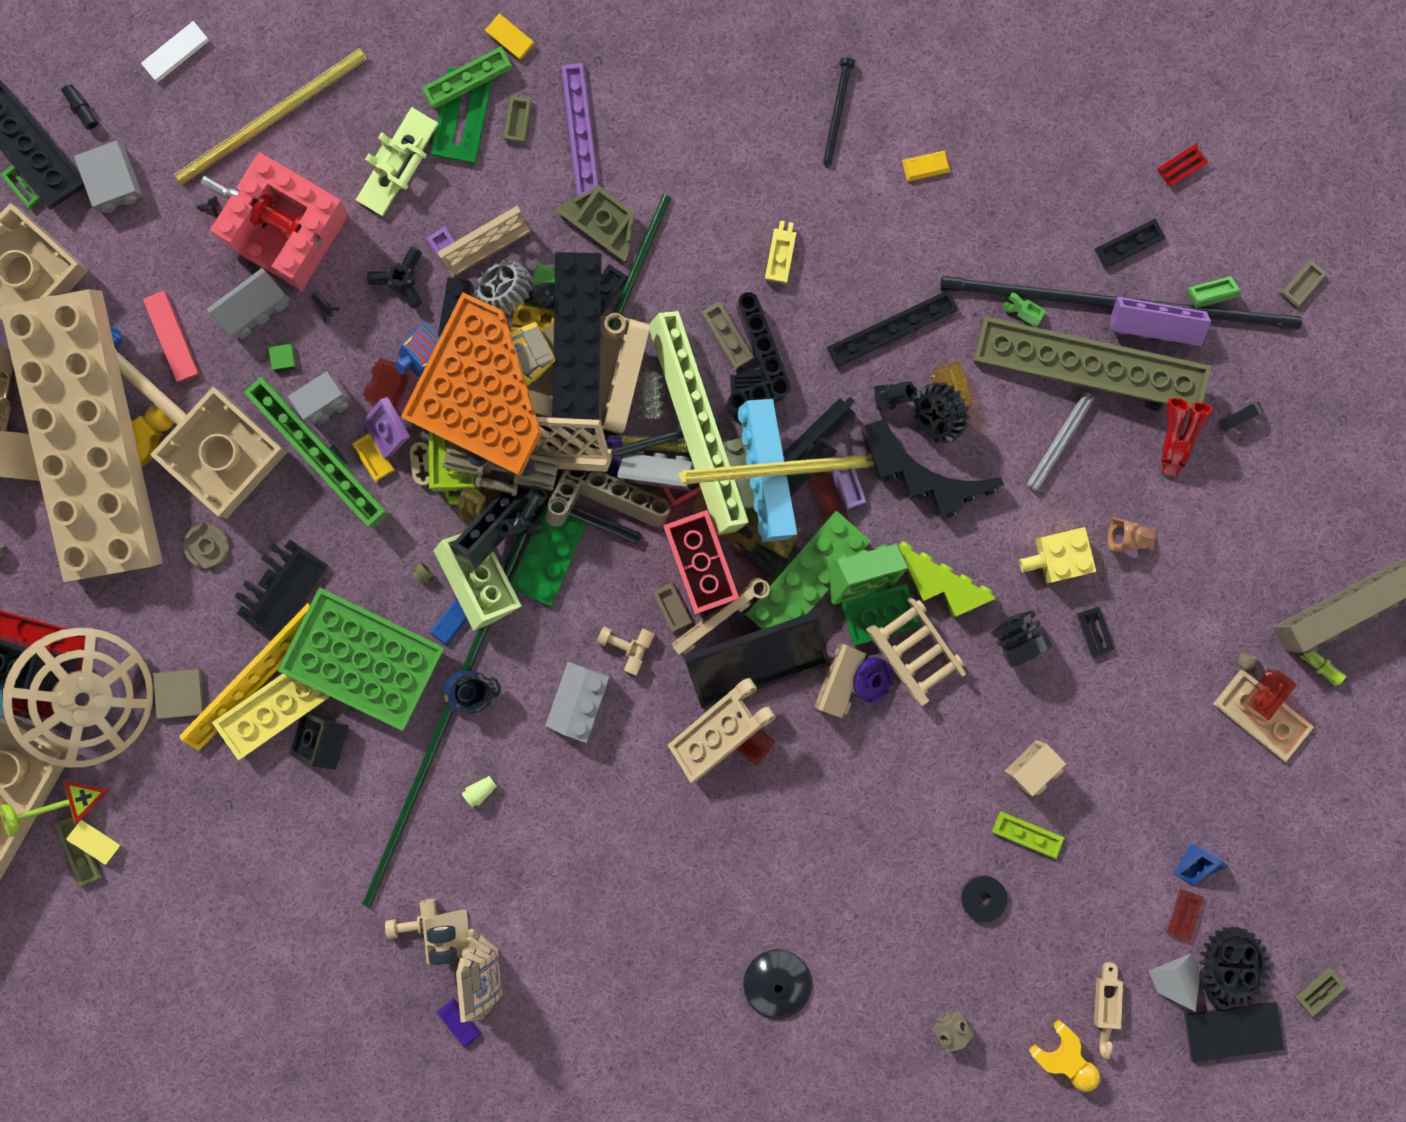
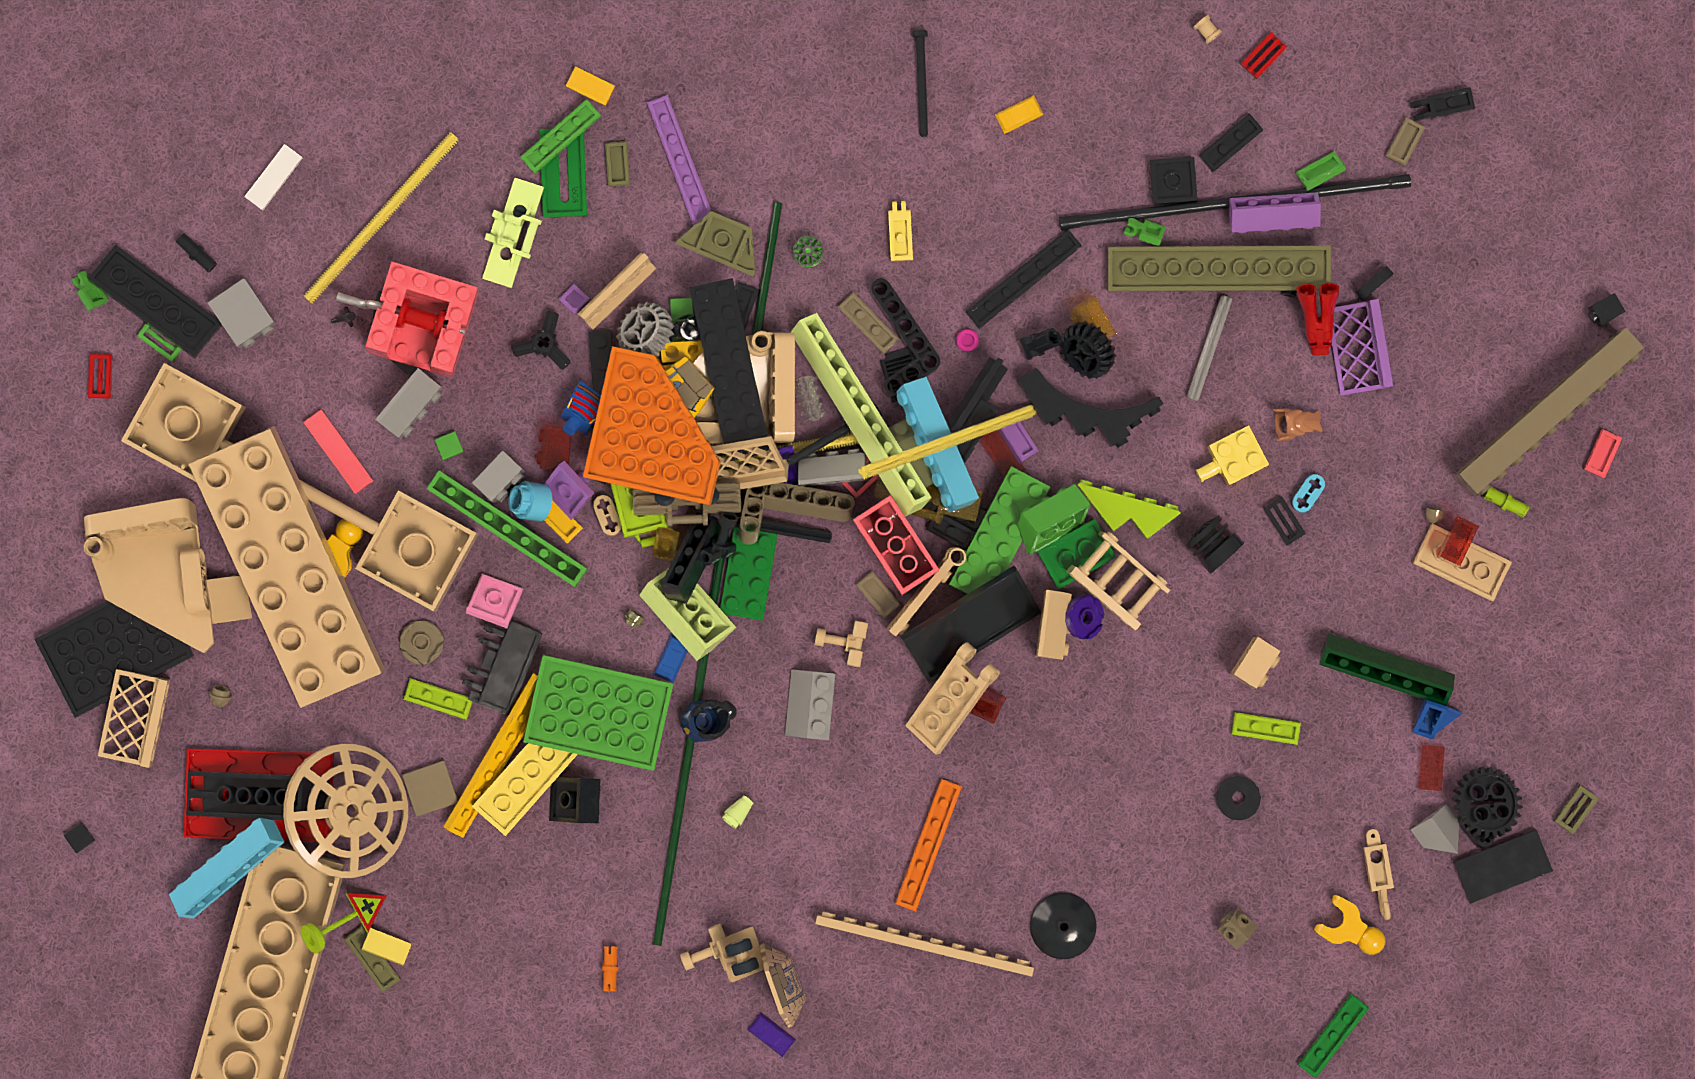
camera: 10 degrees left, 0 degrees up
(208, 606) = (438, 699): none -> lime tile
(287, 521) = (494, 600): none -> bright pink tile
(312, 918) = (610, 969): none -> orange pin
(325, 307) = (479, 388): black bar -> none
(346, 430) = (530, 501): none -> medium azure piece
(625, 966) = (934, 945): none -> tan plate
(661, 870) = (928, 845): none -> orange tile
(685, 250) = (808, 251): none -> wheel
(821, 376) = (967, 340): none -> dark pink tile
(1064, 266) = (1173, 180): none -> black plate
(1129, 613) = (1313, 496): none -> medium azure beam
(1133, 125) = (1207, 29): none -> tan bush
(1166, 806) = (1387, 669): none -> dark green brick
(1232, 481) = (1379, 346): none -> medium lavender fence
(1352, 255) = (1445, 104): none -> black hinge

